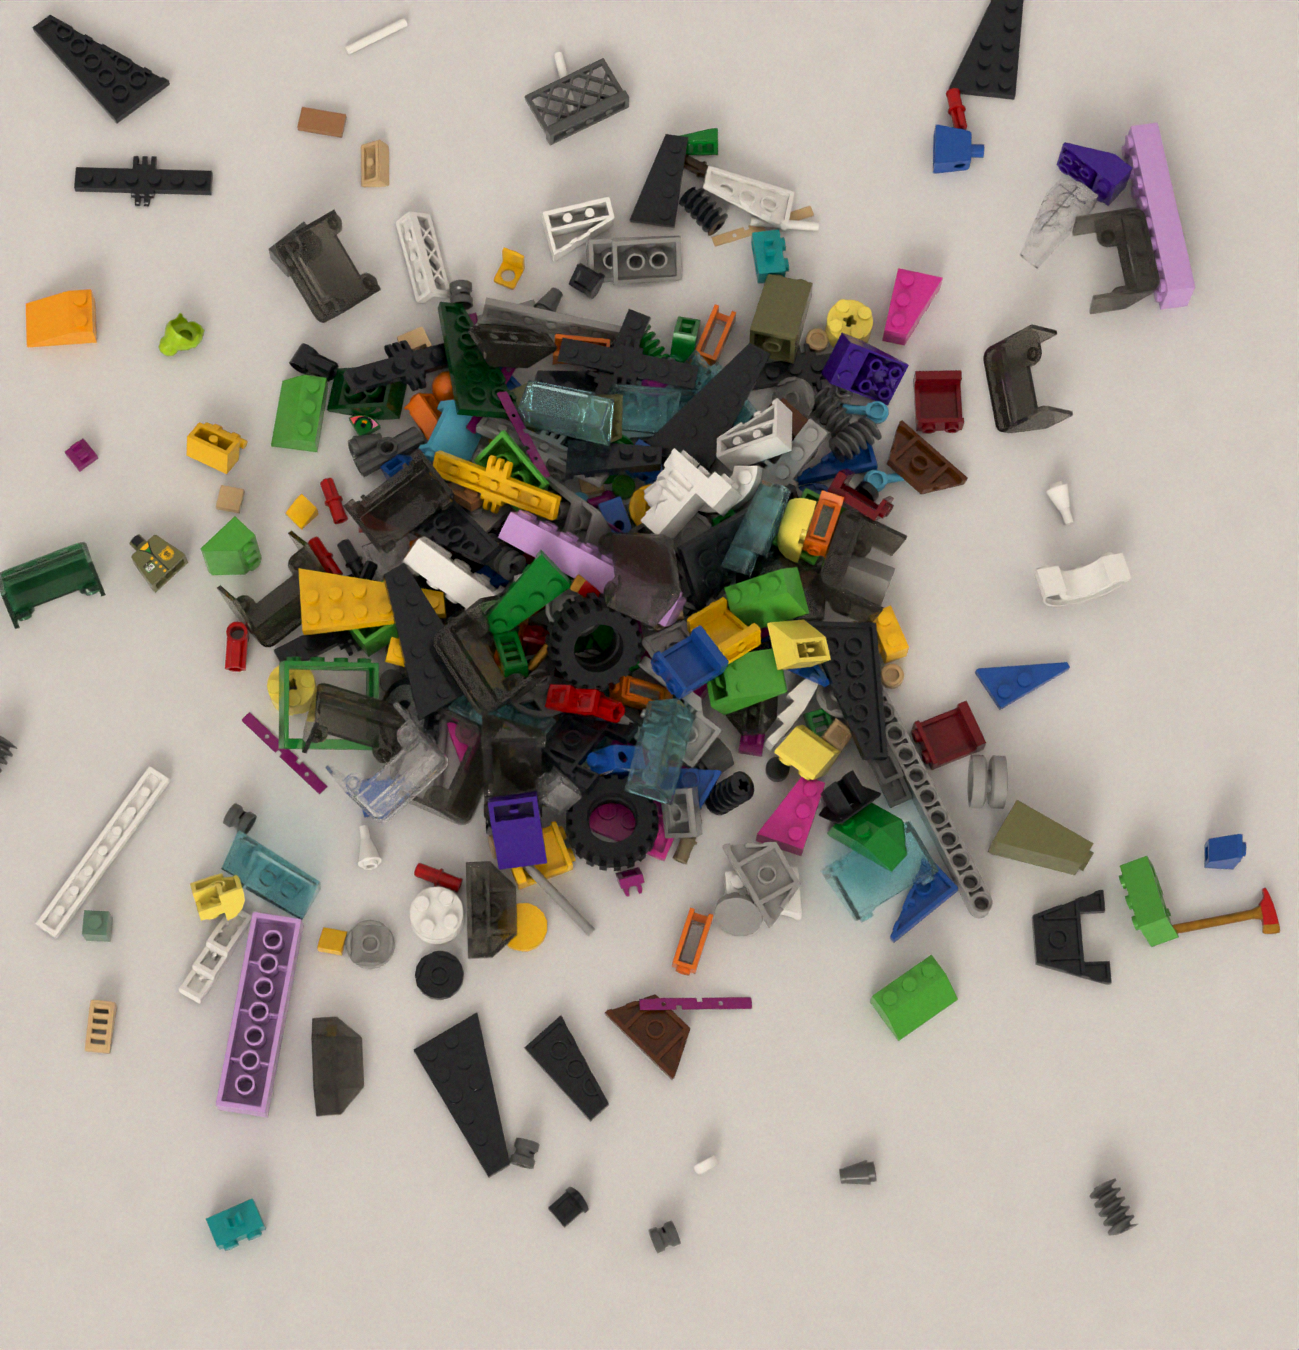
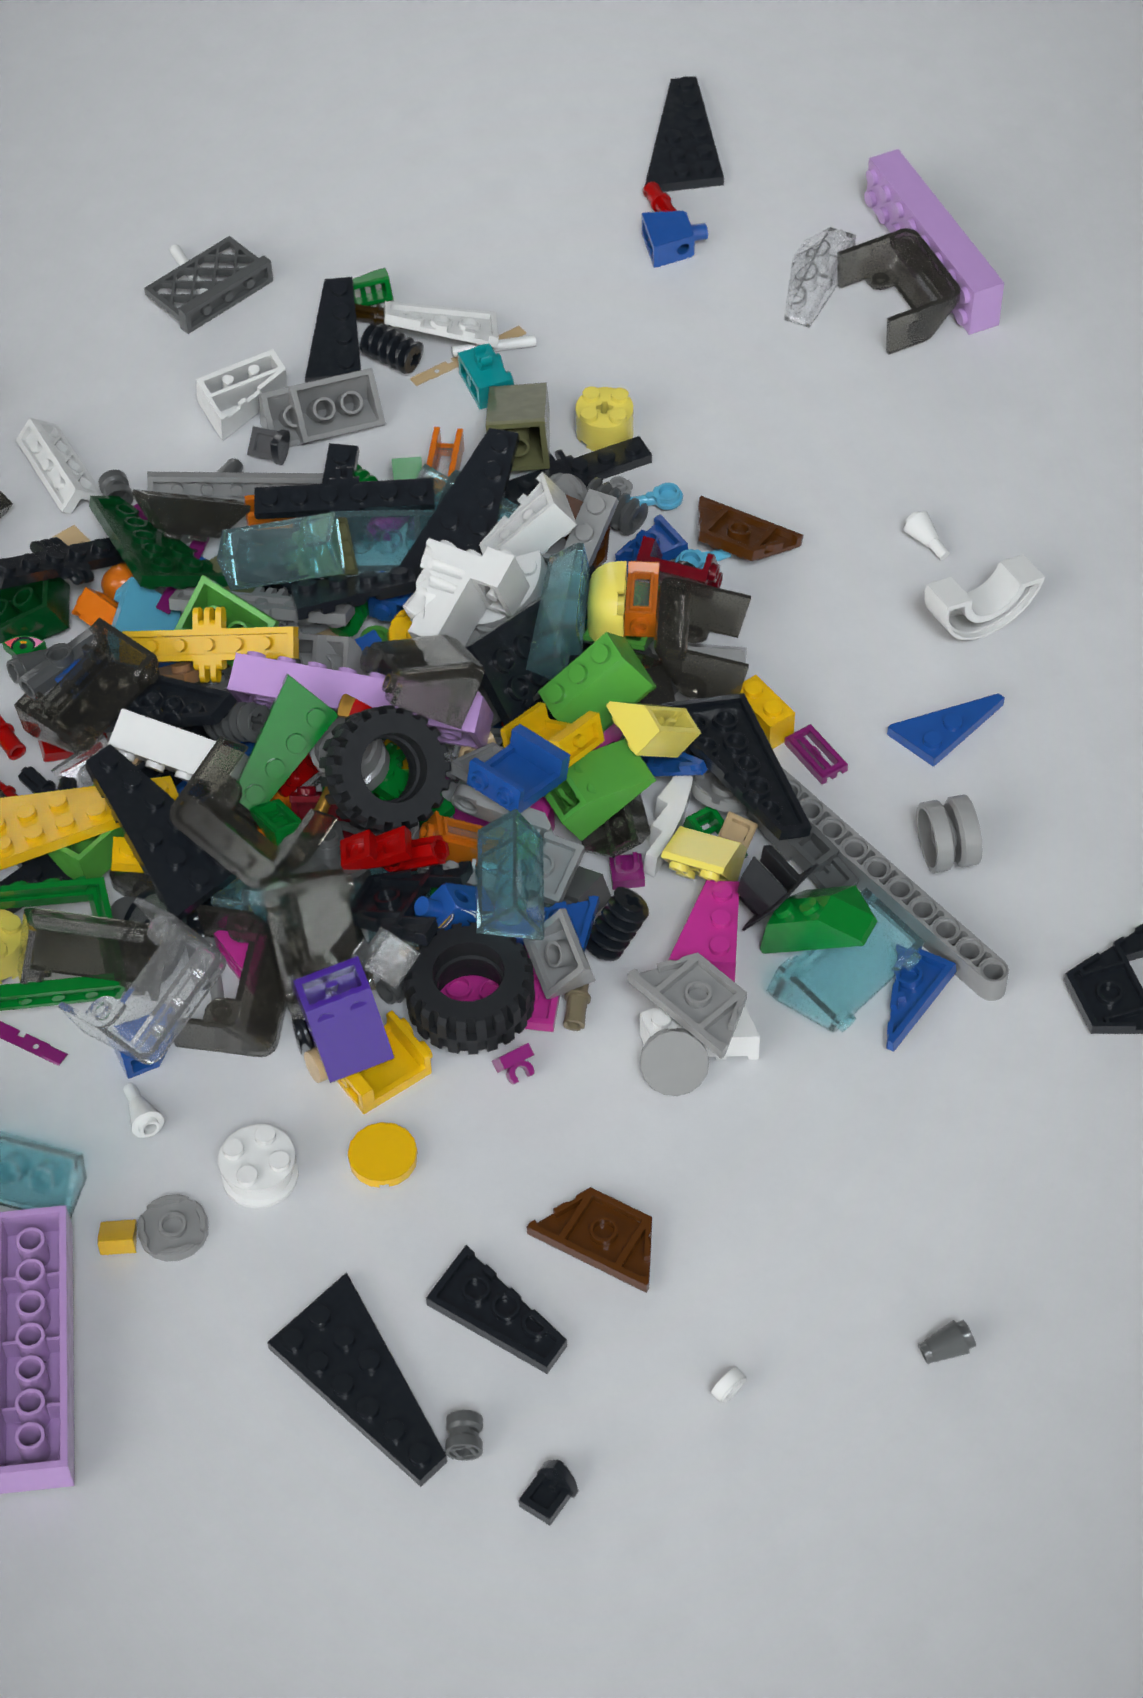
camera: 10 degrees left, 20 degrees down
(236, 1224) = (58, 1641): teal brick -> none
(335, 1065) = (161, 1393): clear smoke wedge -> none
(438, 877) = (234, 1120): red axle -> none
(439, 975) = (280, 1242): black tile -> none
(489, 910) = (330, 1133): clear smoke wedge -> none
(511, 261) = (172, 446): yellow bracket -> none
(524, 437) = (205, 570): magenta piece -> none
(559, 899) = (422, 1106): light grey bar -> none
(664, 1236) = (699, 1494): dark grey wheel -> none
(692, 942) = (621, 1115): orange window -> none
(692, 1004) = (645, 1188): magenta piece -> none
(776, 770) = (670, 892): black tile -> none
(817, 340) = (571, 444): tan tile -> none
(852, 437) = (650, 518): dark grey piece -> none
(864, 369) = (638, 450): dark purple slope -> none
(892, 676) = (787, 757): tan tile -> none
(908, 303) = (669, 383): dark pink wedge -> none
(910, 659) = (812, 757): none -> magenta tile
(914, 998) = (944, 1107): bright green slope -> none
(938, 401) = (738, 468): dark red panel -> none
(948, 736) = (881, 803): dark red panel -> none
(1012, 385) = (813, 426): clear smoke windscreen -> none
(1040, 841) = (1045, 884): olive slope -> none
(1096, 169) = (846, 208): dark purple slope -> none

